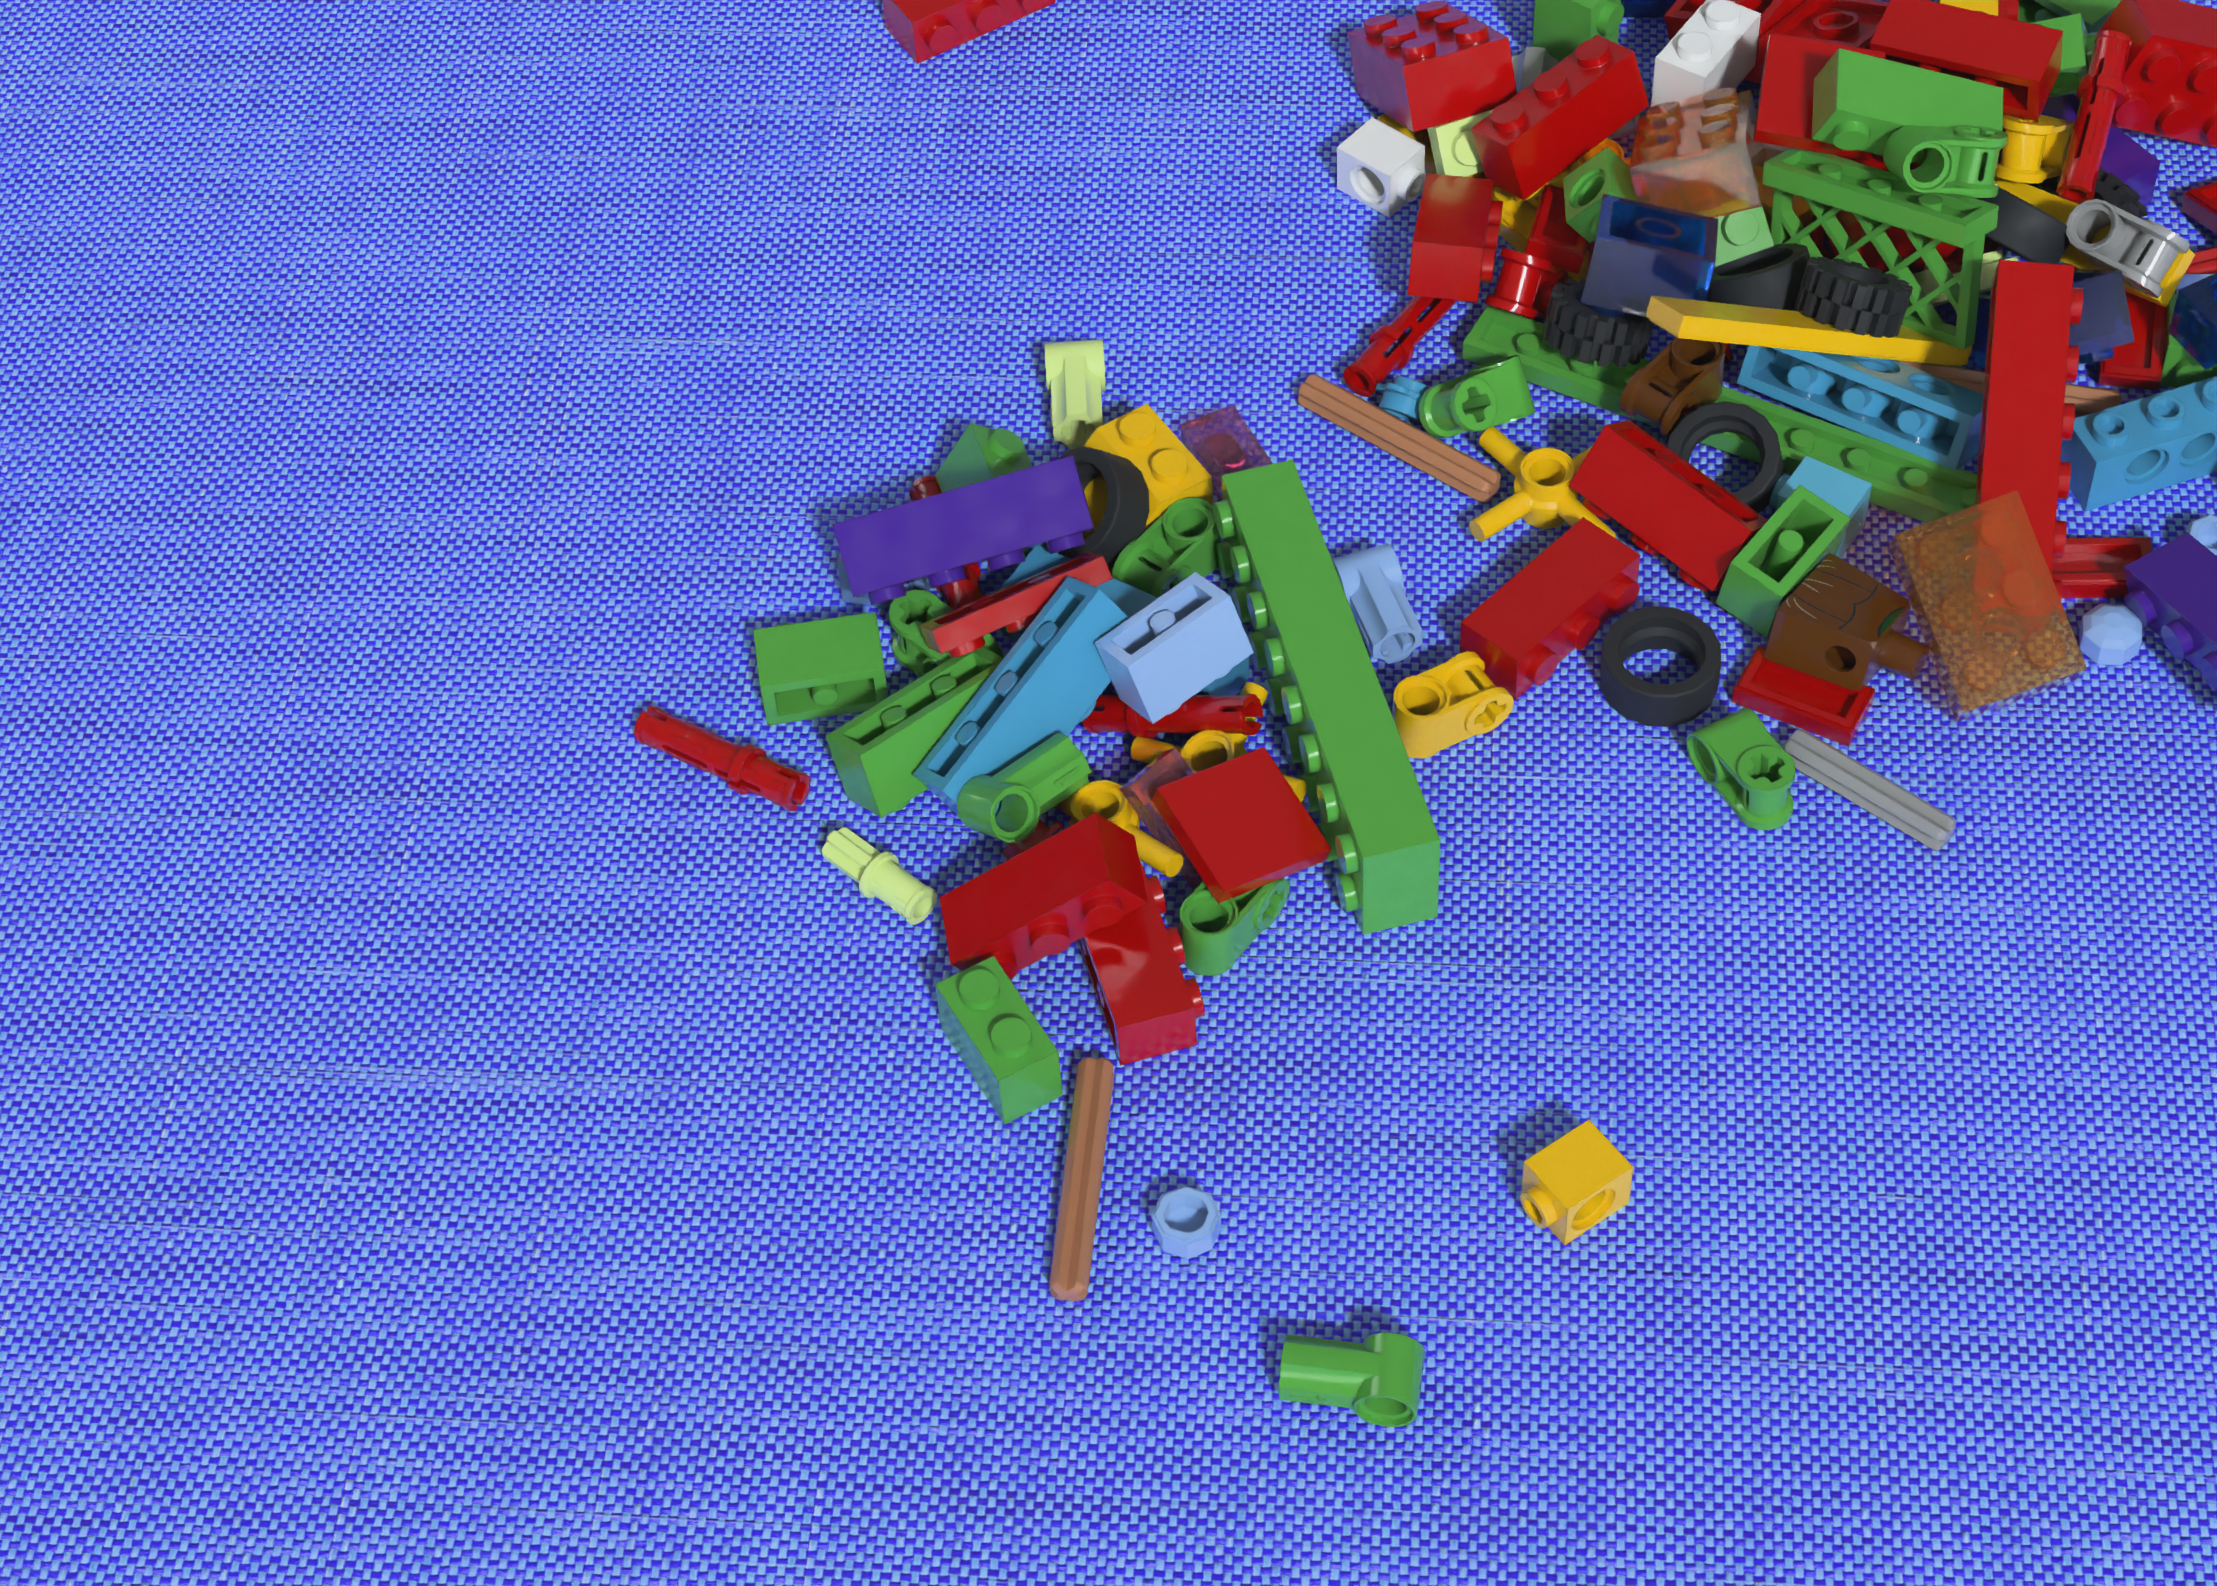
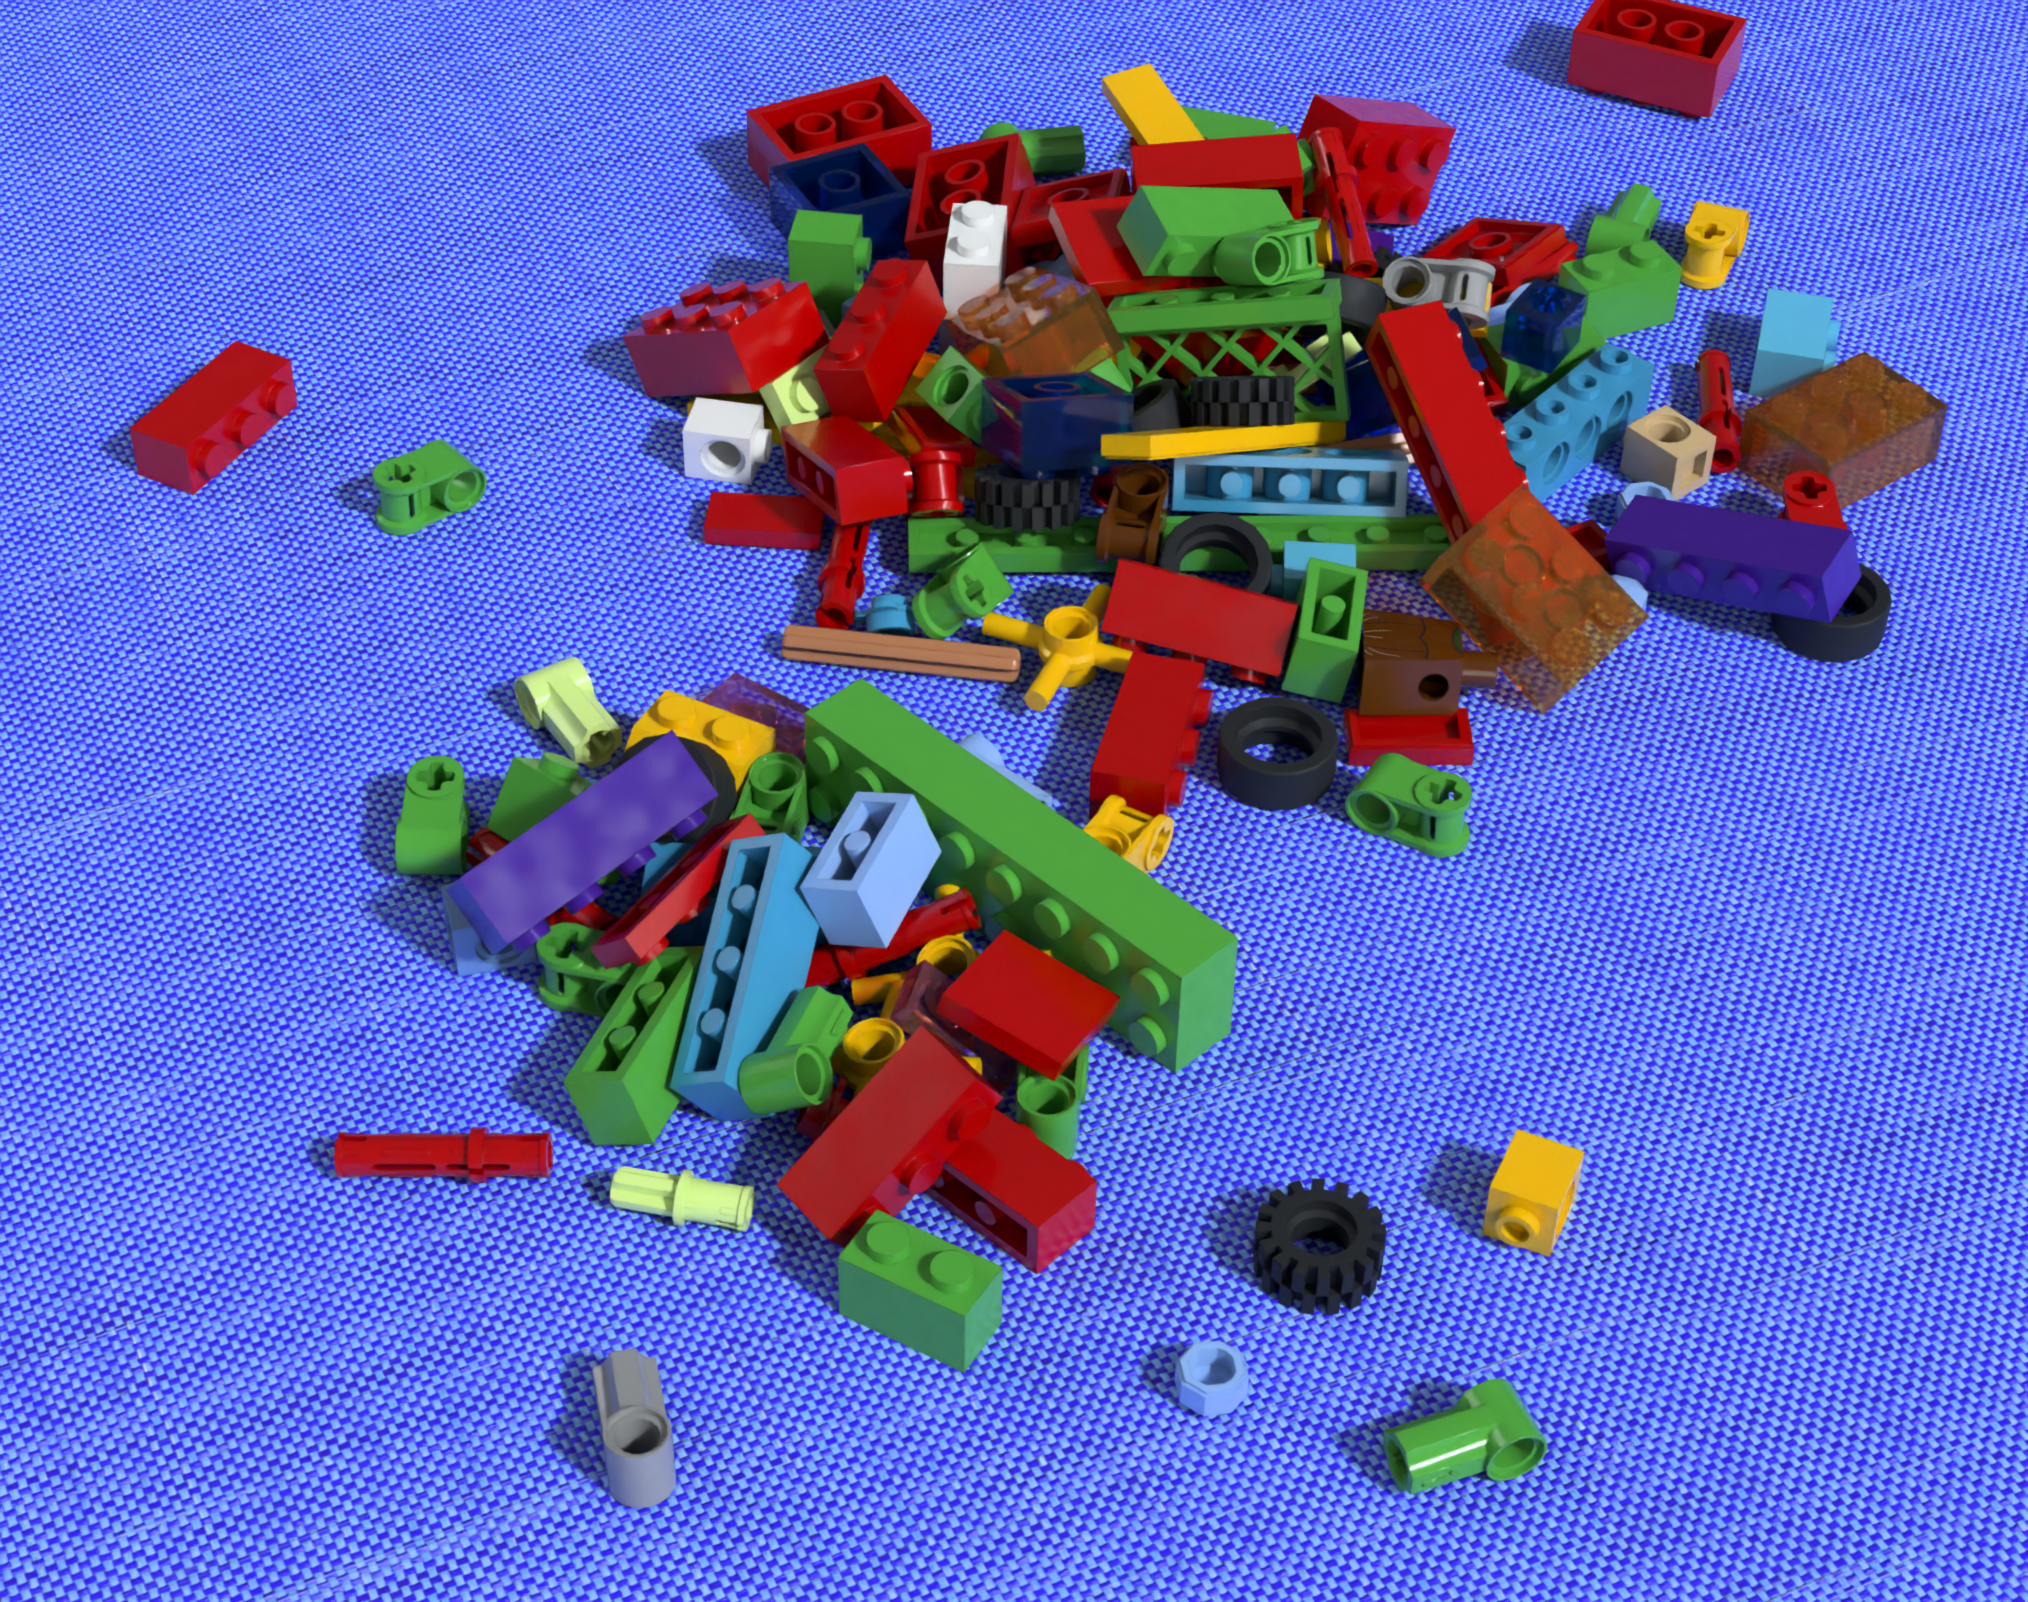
camera: 35 degrees left, 10 degrees down
(708, 1056) = (634, 1429): none -> light grey piece
(820, 668) = (493, 1035): bright green brick -> none
(898, 451) = (433, 819): none -> bright green piece
(1082, 1180) = (1084, 1386): nougat axle -> none
(1102, 123) = (428, 483): none -> bright green piece
(1358, 1114) = (1312, 1276): none -> black tyre
(1364, 258) = (763, 521): none -> red tile
(1870, 790) = (1533, 788): light grey axle -> none

